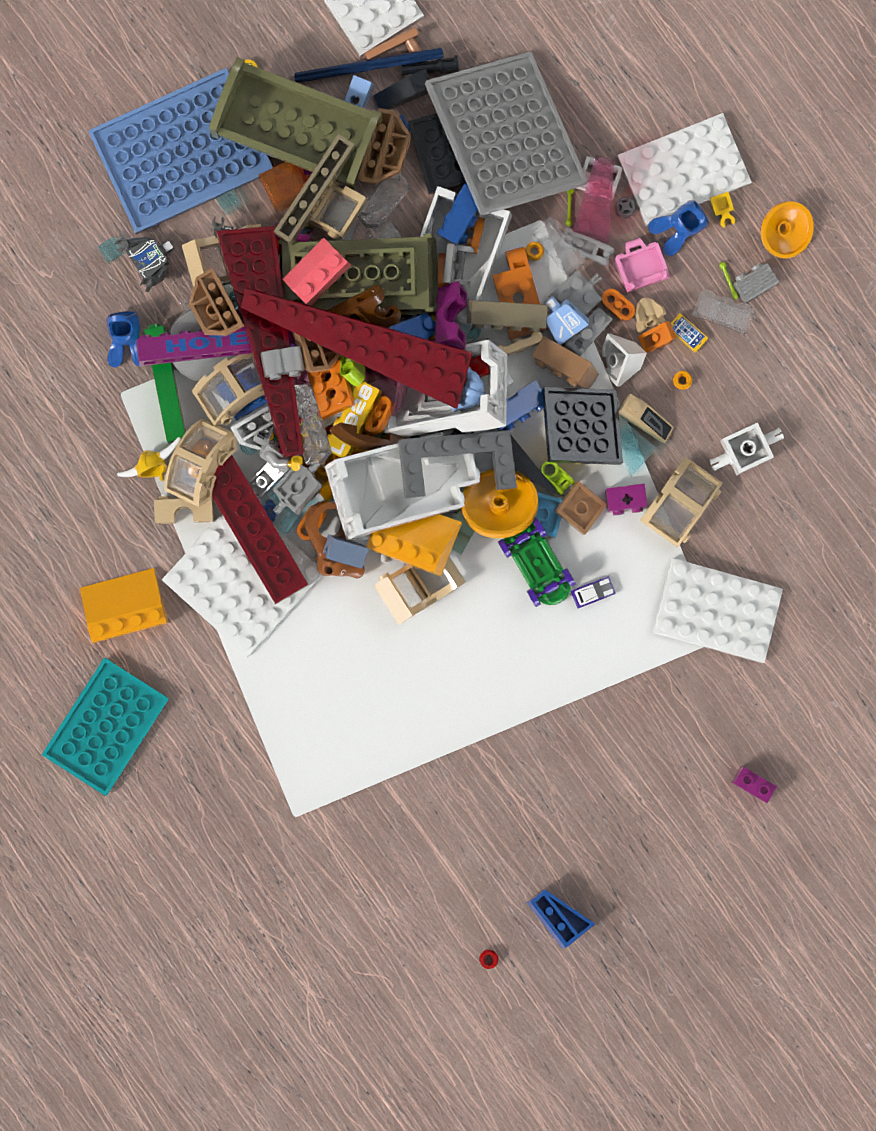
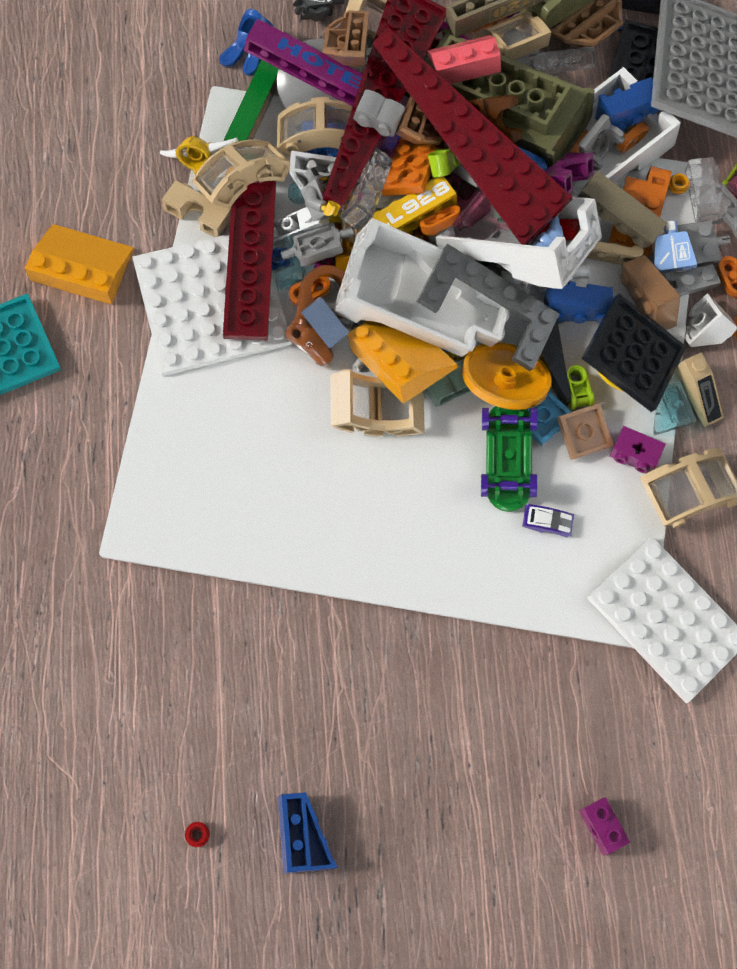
camera: 30 degrees right, 15 degrees down
(349, 435) = (398, 210): reddish brown slope -> none

